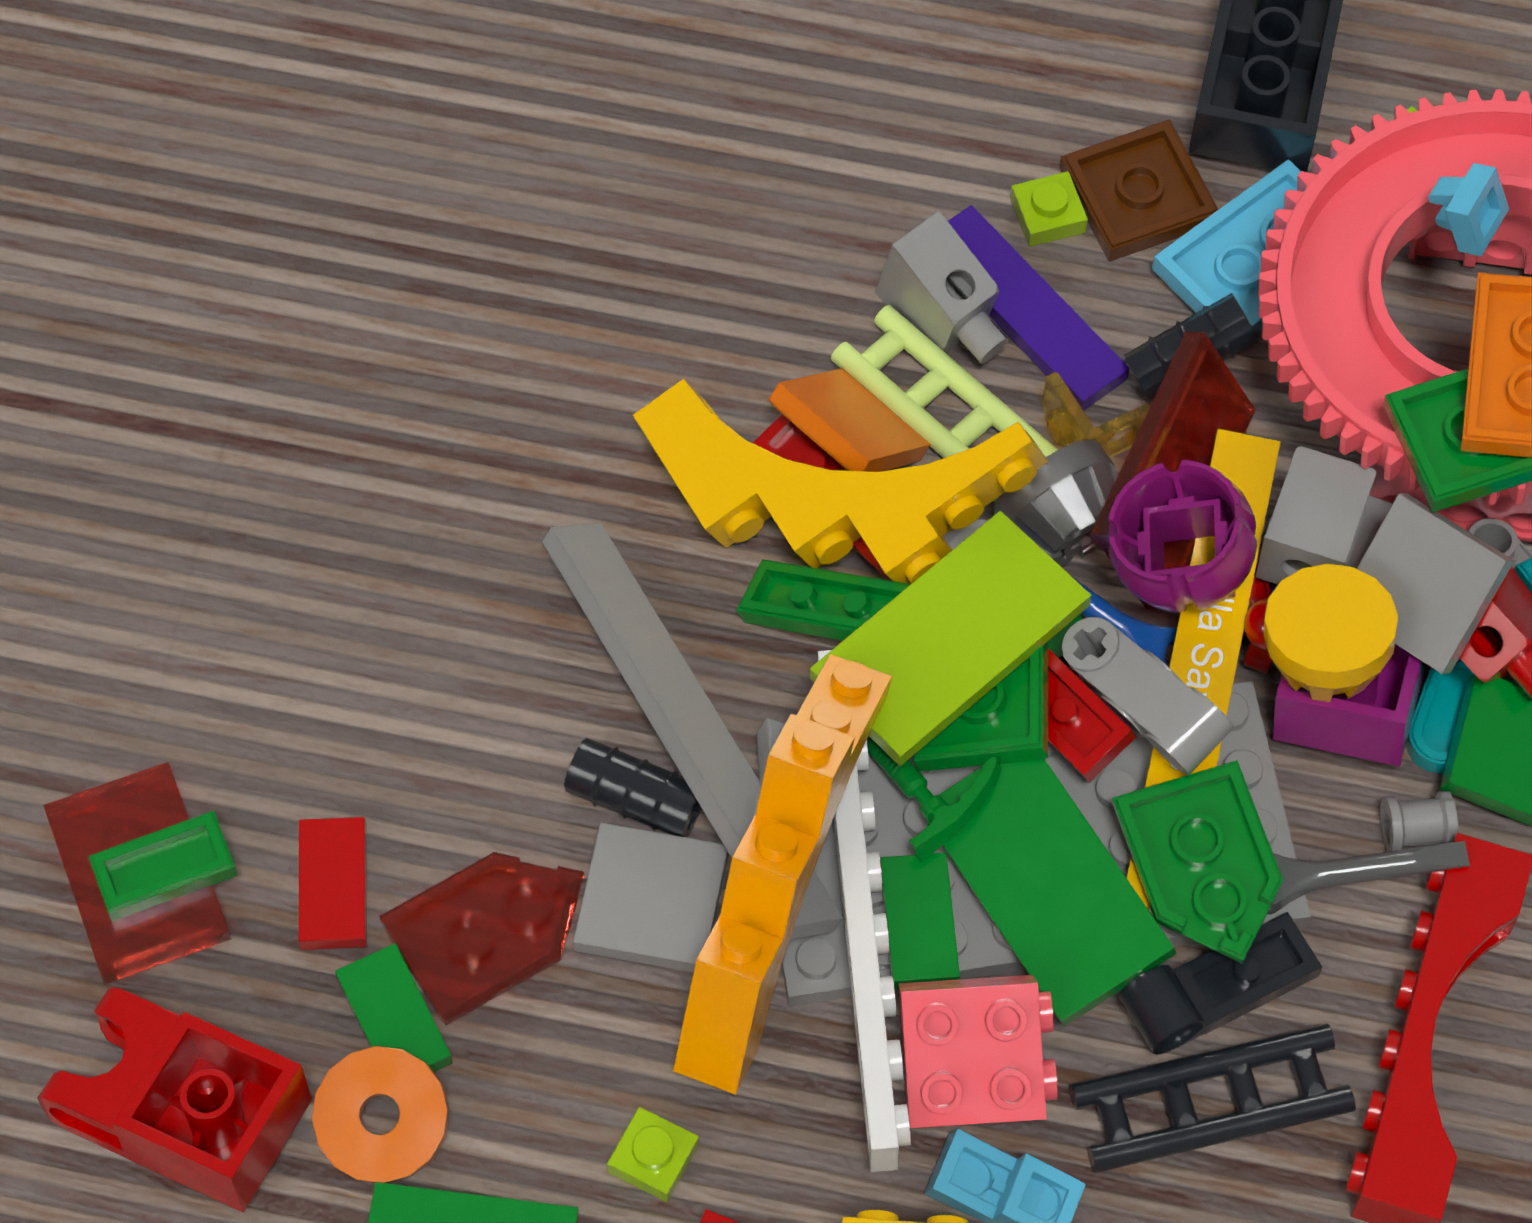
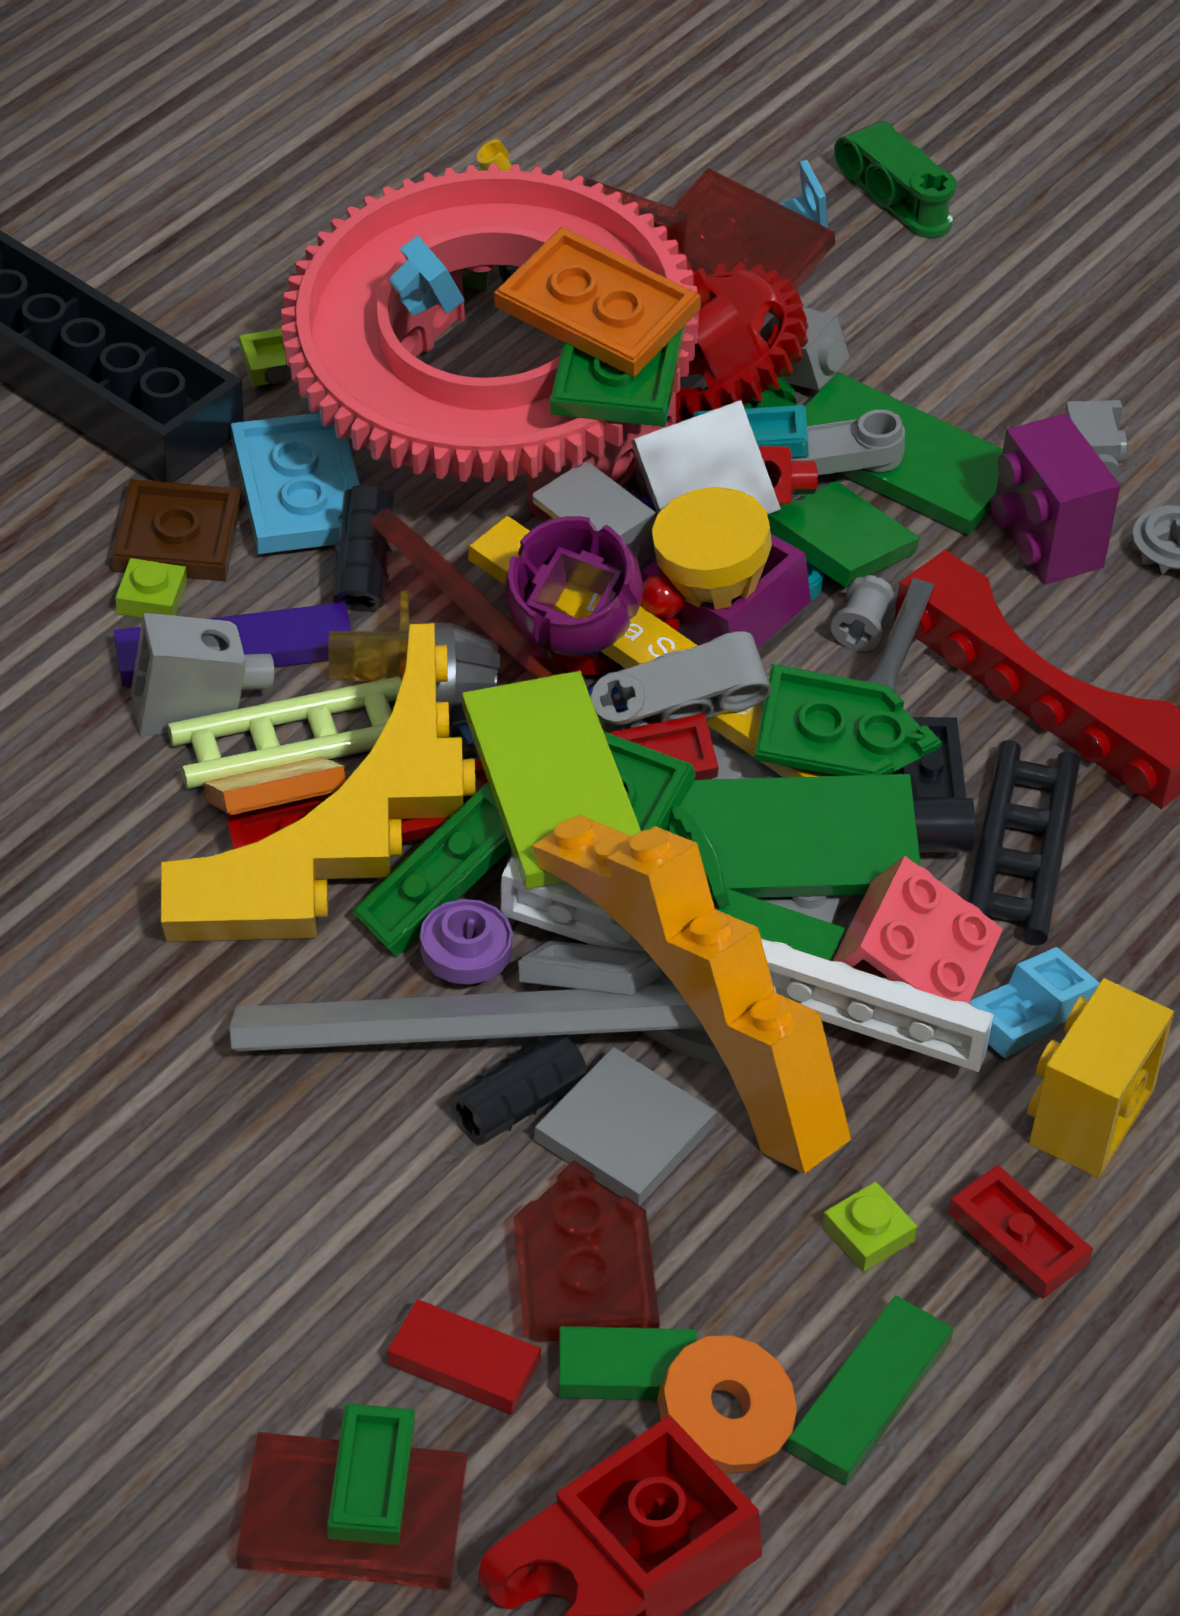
camera: 65 degrees left, 15 degrees down
(769, 666) = (466, 941): none -> medium lavender plate

